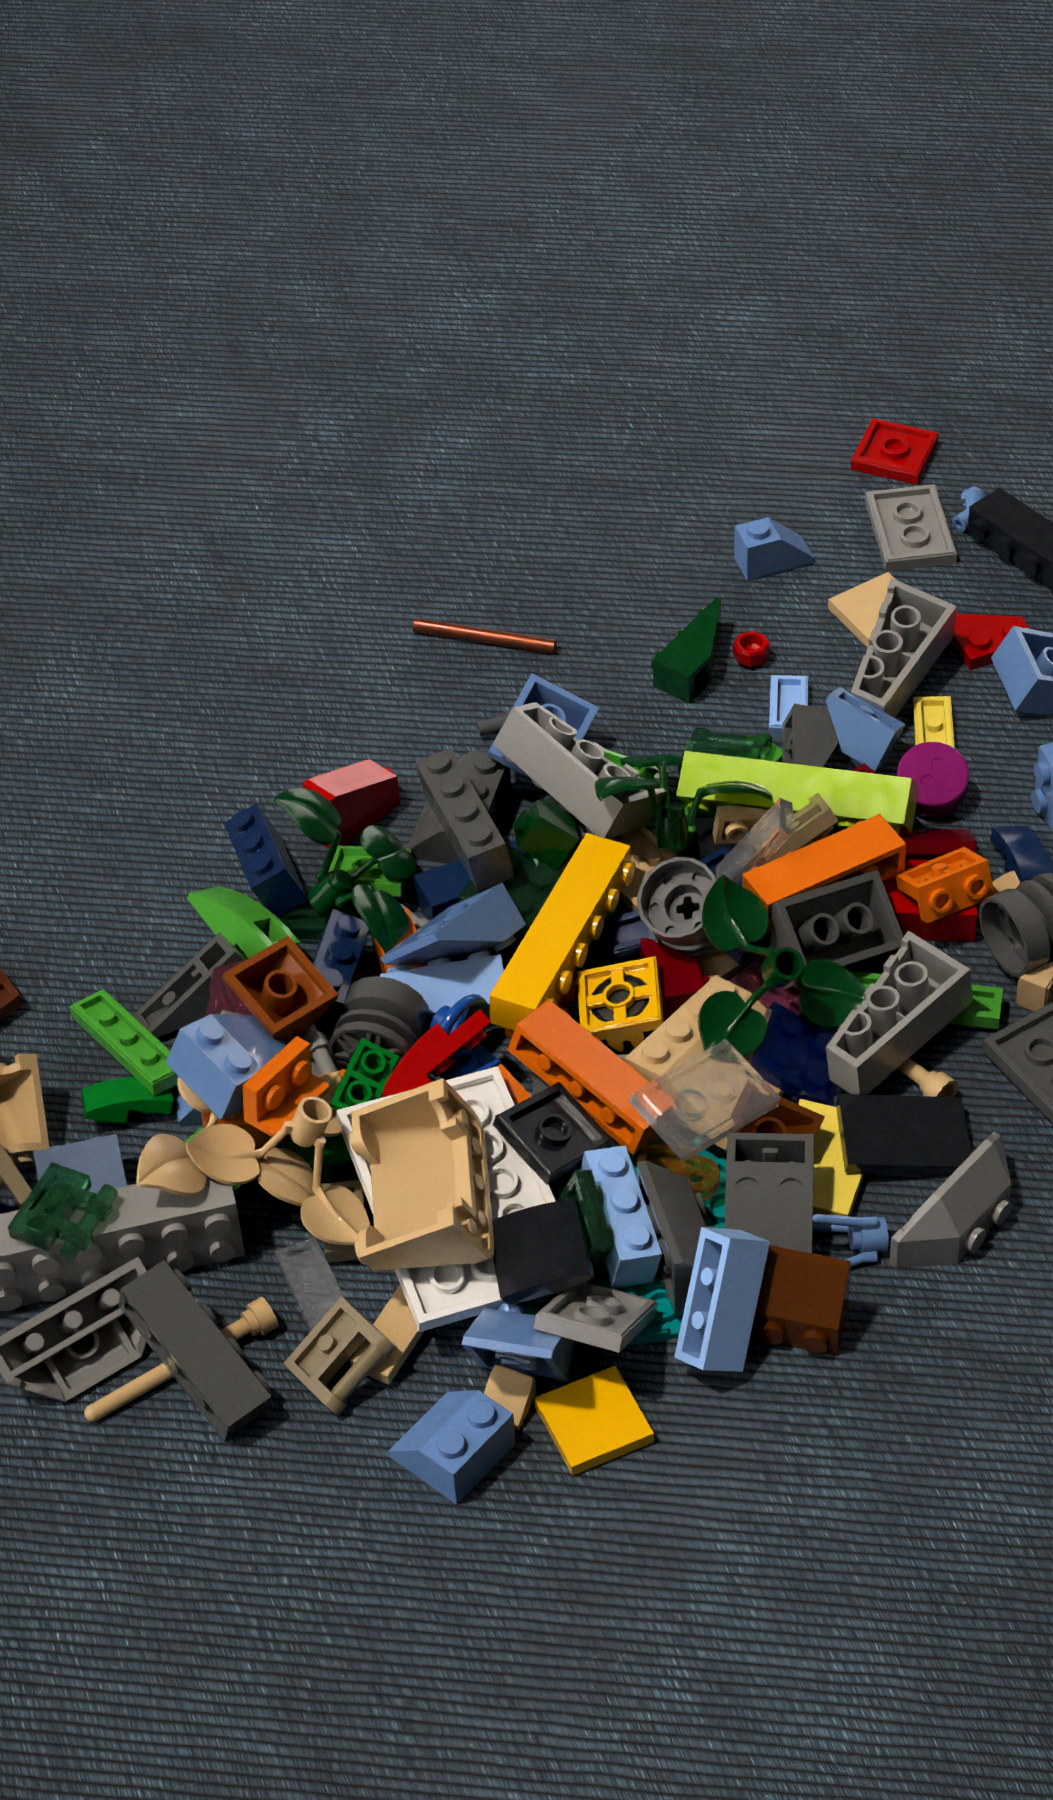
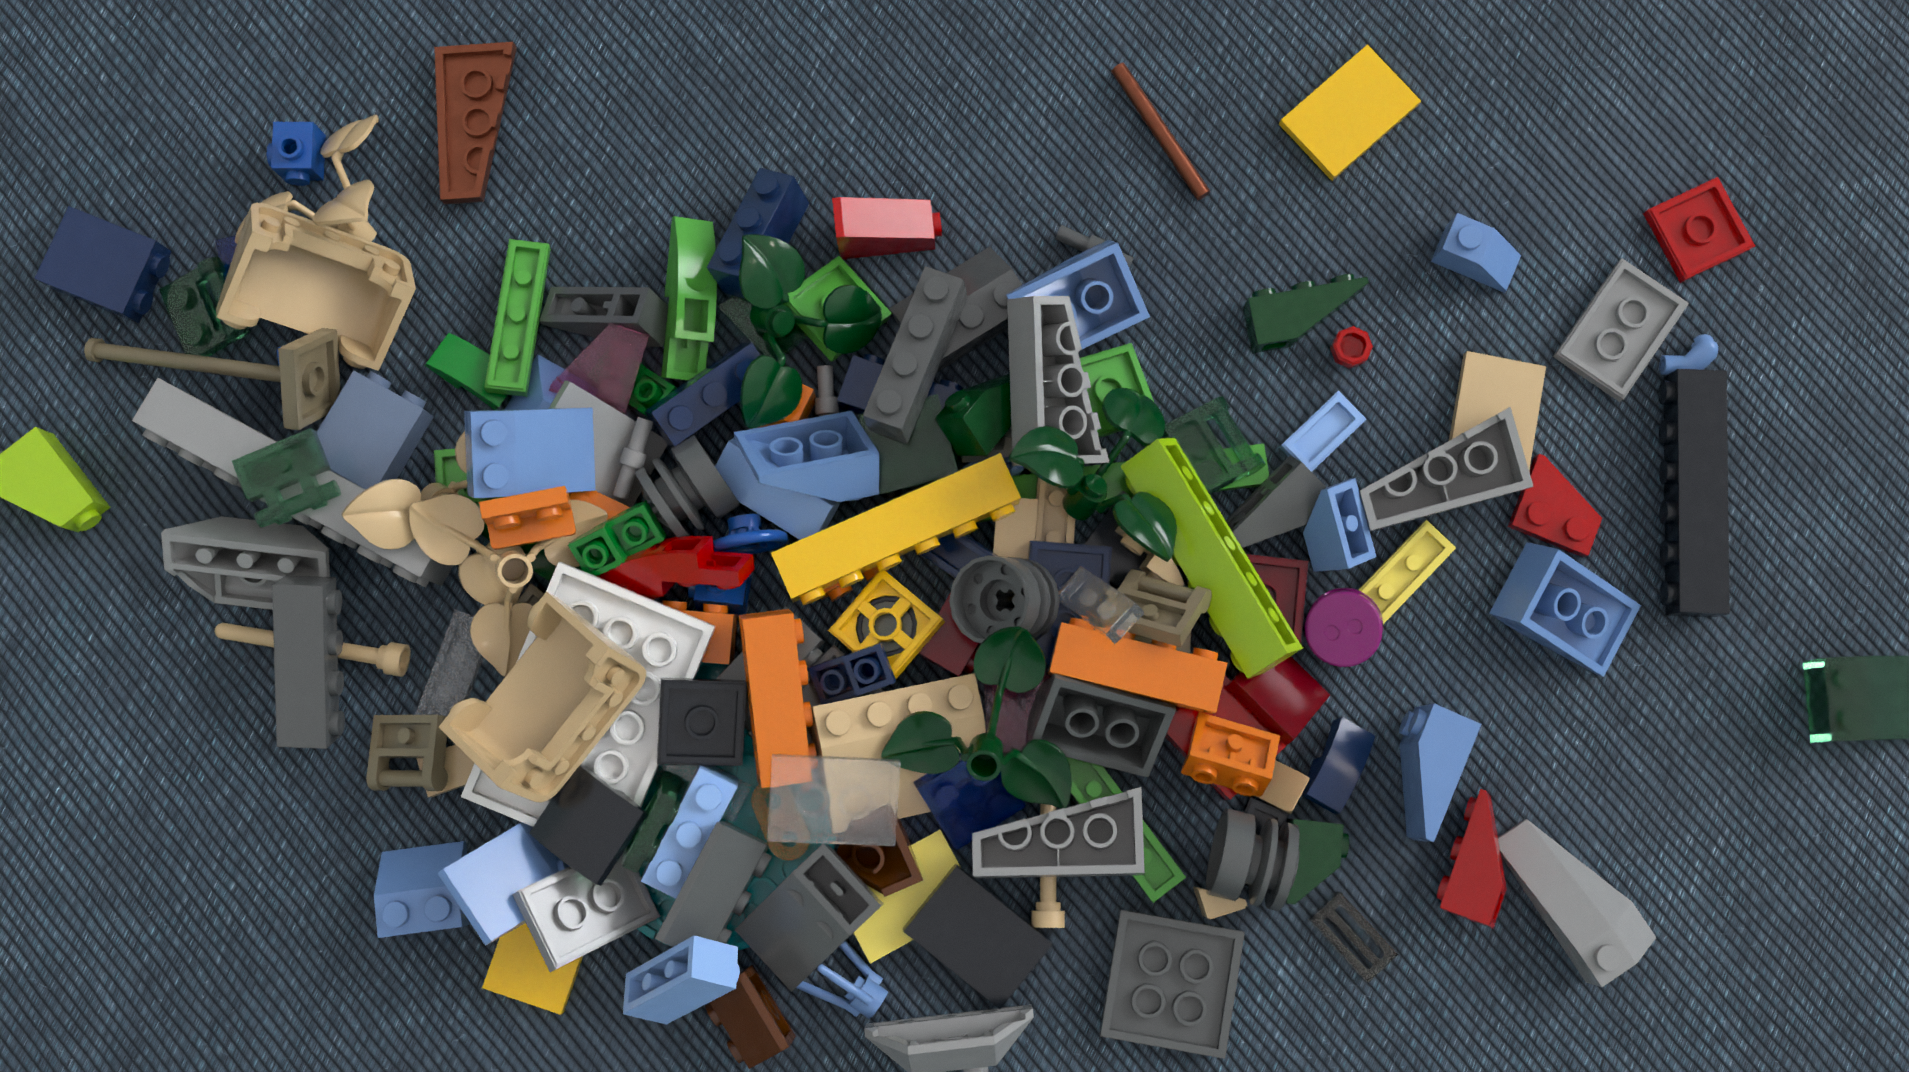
camera: 40 degrees right, 35 degrees up
(282, 989) = (621, 403): dark orange slope -> none
(600, 544) = (1349, 112): none -> yellow tile
(634, 1022) = (852, 674): none -> dark blue slope

